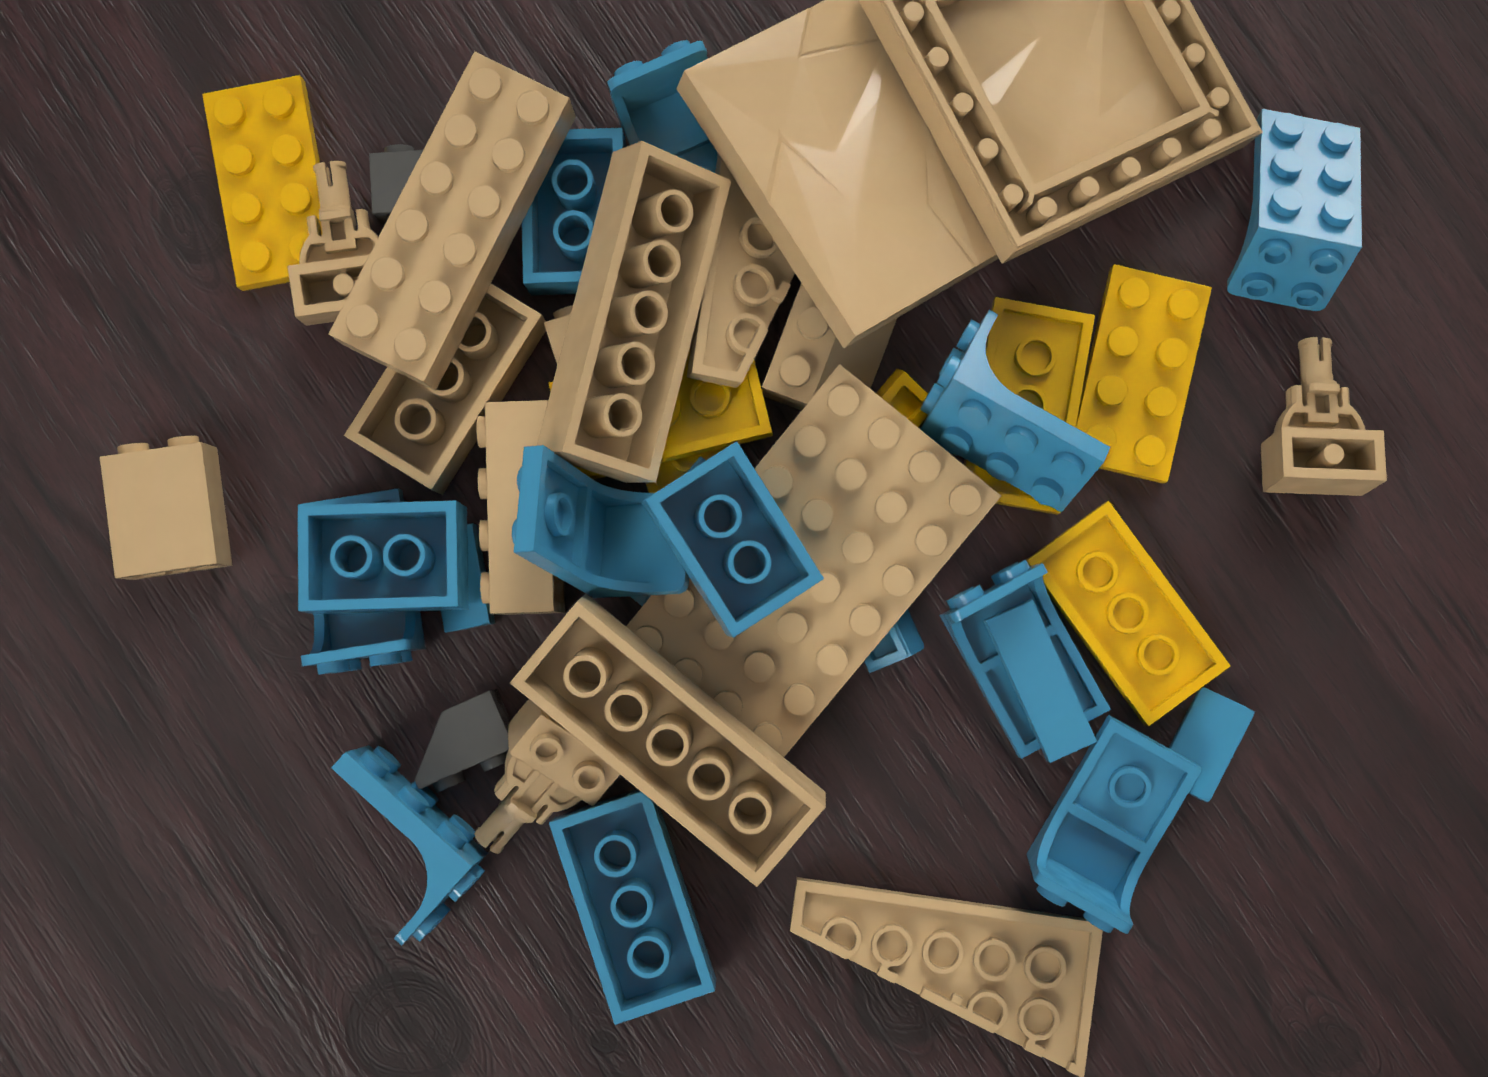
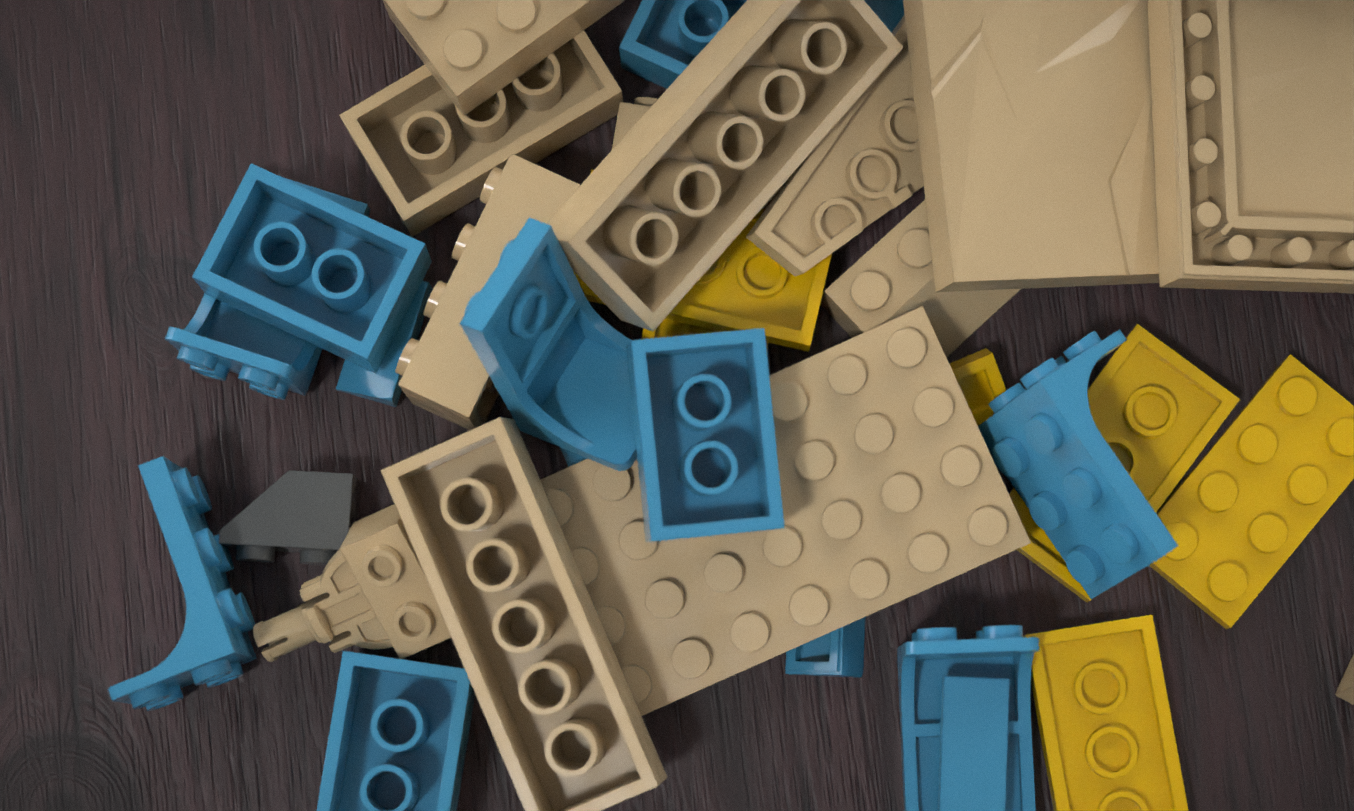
camera: 25 degrees right, 5 degrees down
(165, 509) = (103, 101): tan brick -> none

